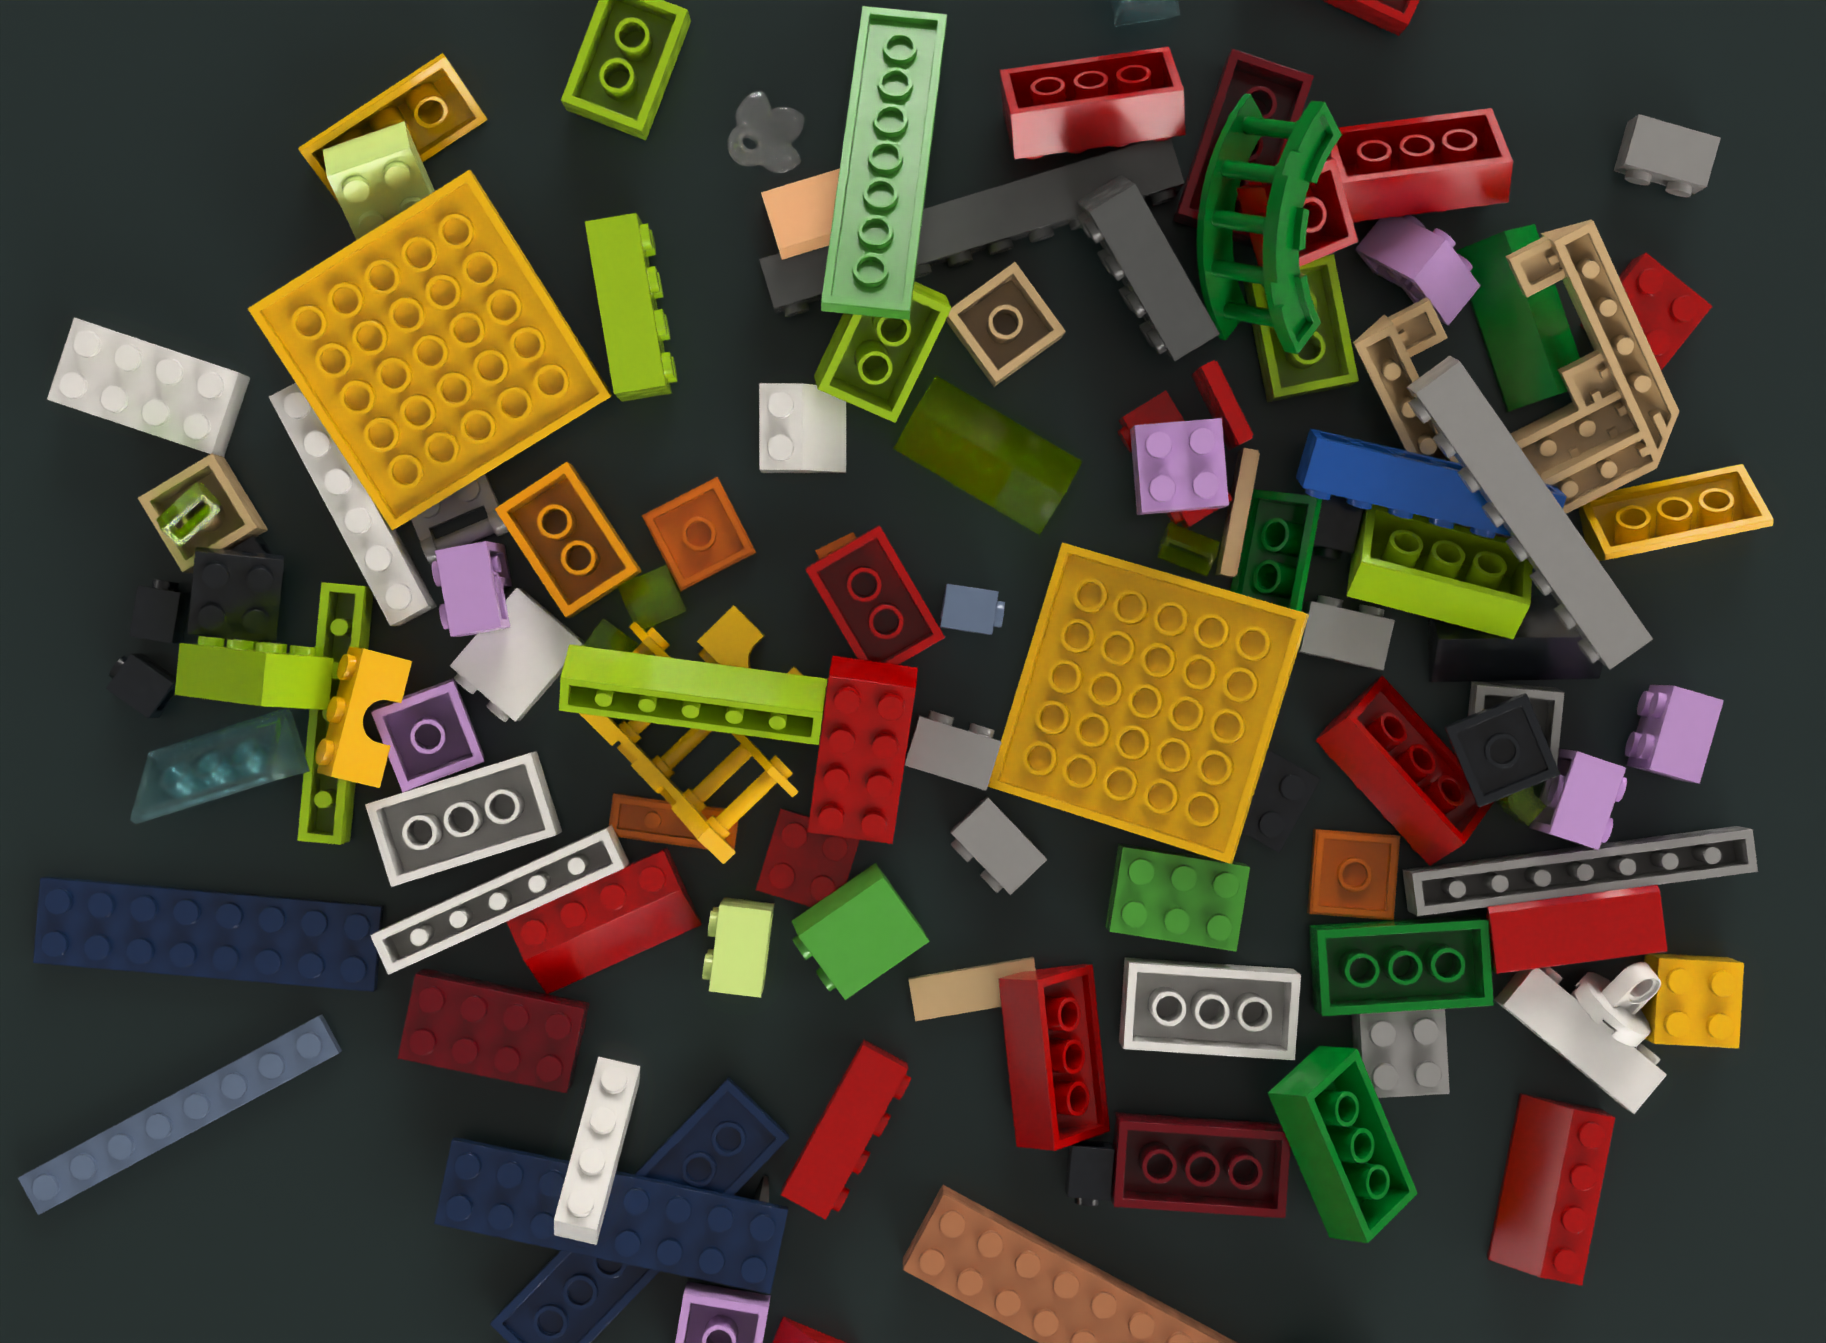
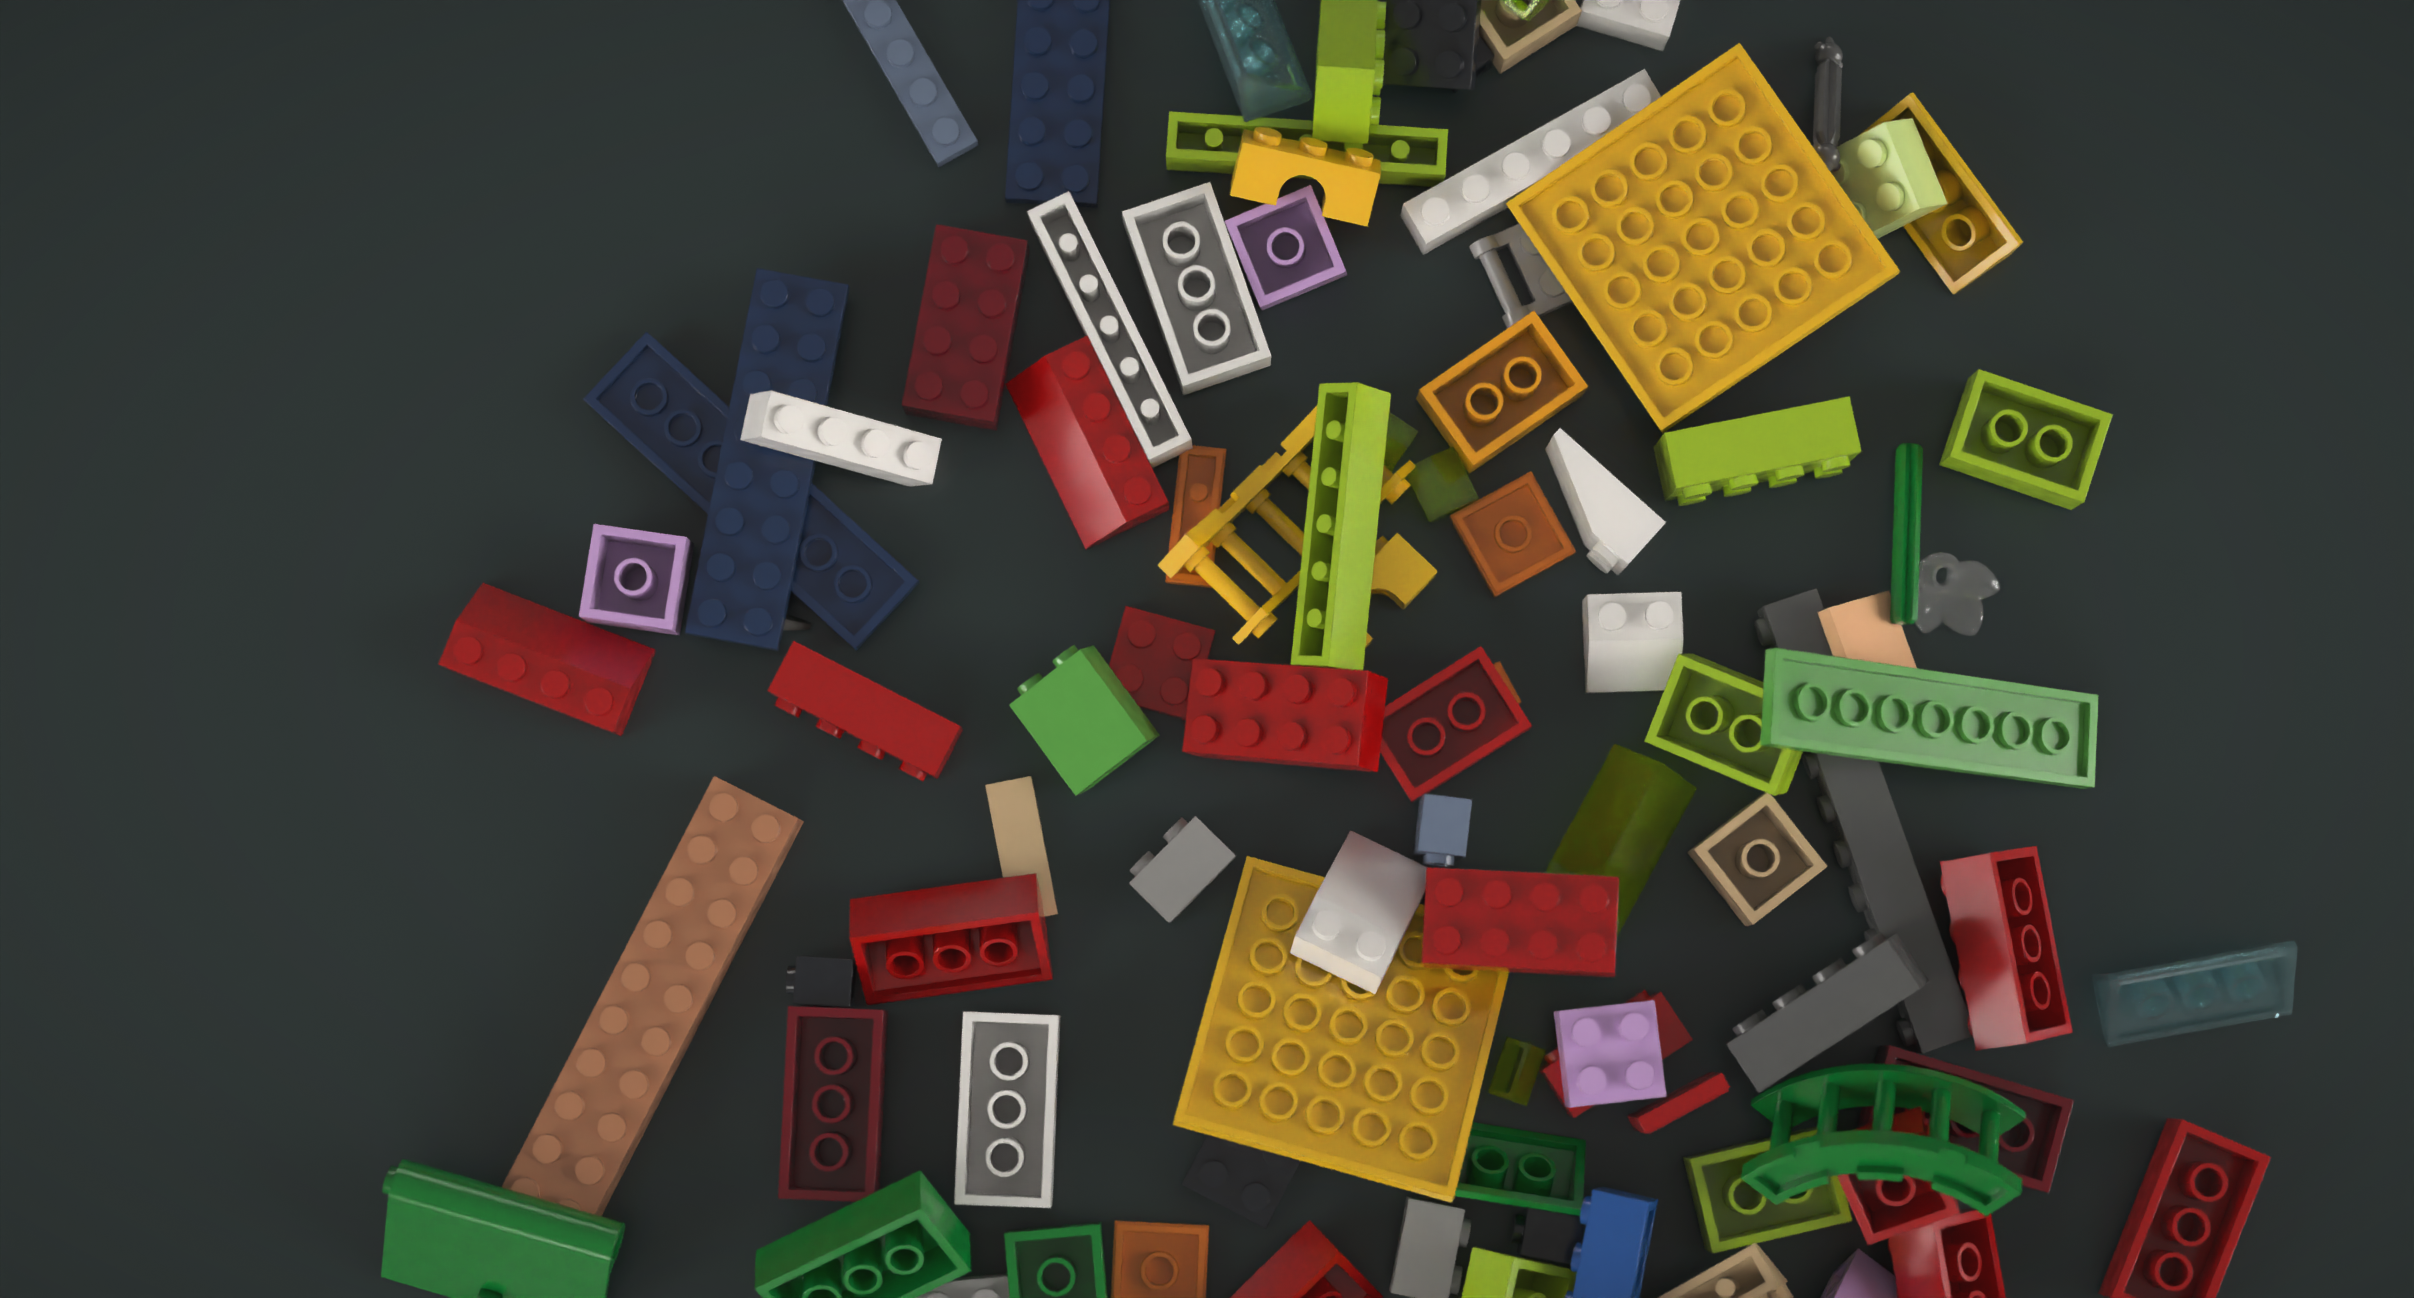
camera: 90 degrees right, 5 degrees down
(305, 227) = (1828, 102): none -> dark grey wheel
(473, 587) = (1448, 290): lavender brick -> none
(516, 662) = (1373, 337): white brick -> none
(683, 449) = (1606, 513): none -> white slope
(709, 173) = (1906, 534): none -> green axle
(740, 947) = (1064, 588): yellowish green brick -> none
(953, 751) = (1284, 816): light grey brick -> none
(1041, 684) = (1361, 912): none -> white slope
(1059, 542) = (1520, 922): none -> red brick
(1177, 897) = (1129, 1070): bright green brick -> none
(1237, 513) = (1559, 1126): tan tile -> none

